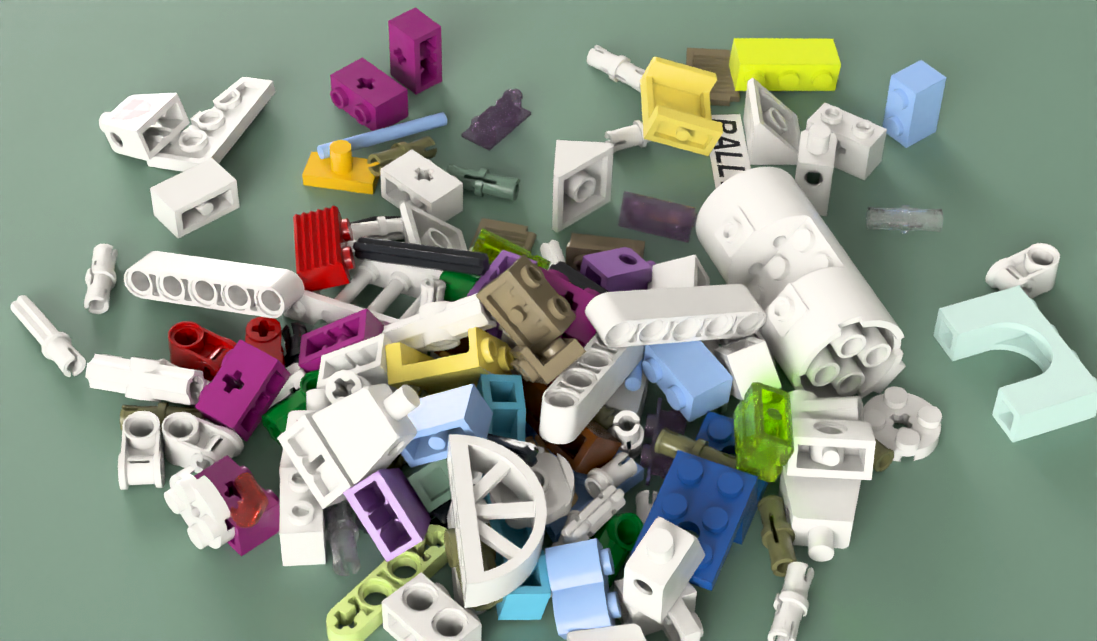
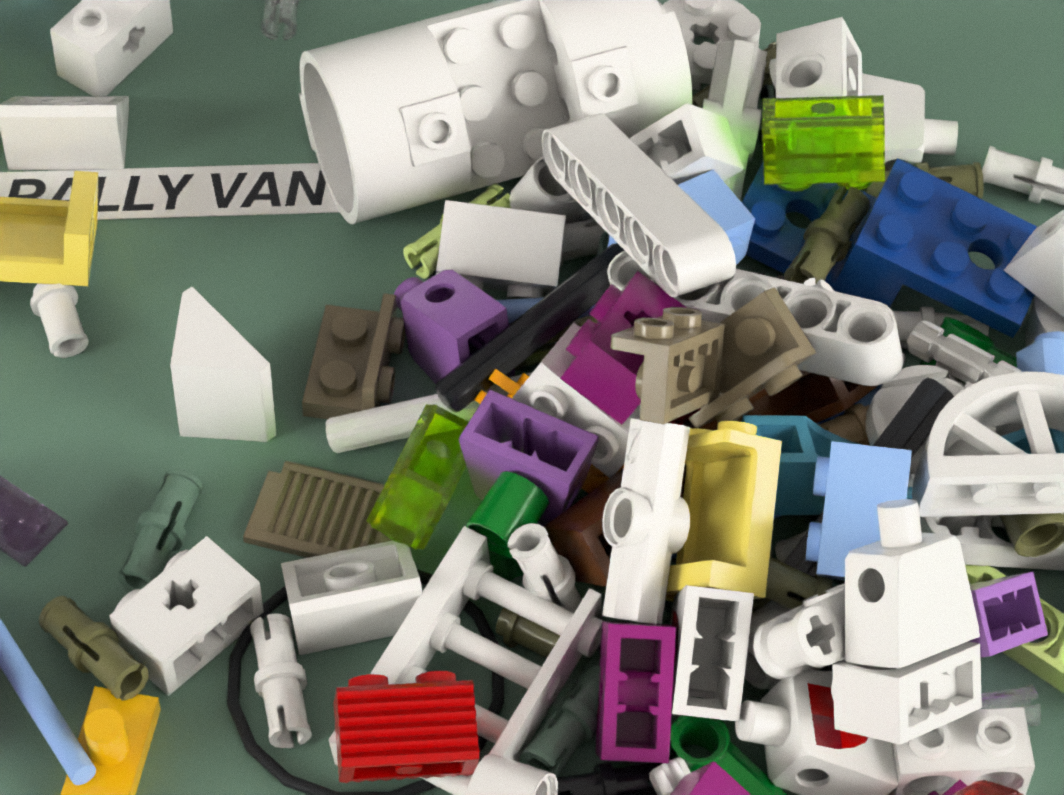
camera: 90 degrees left, 10 degrees up
(422, 256) = (458, 562): black axle -> none
(657, 216) = (272, 274): clear purple hinge -> none
(816, 156) = (193, 68): white torso -> none

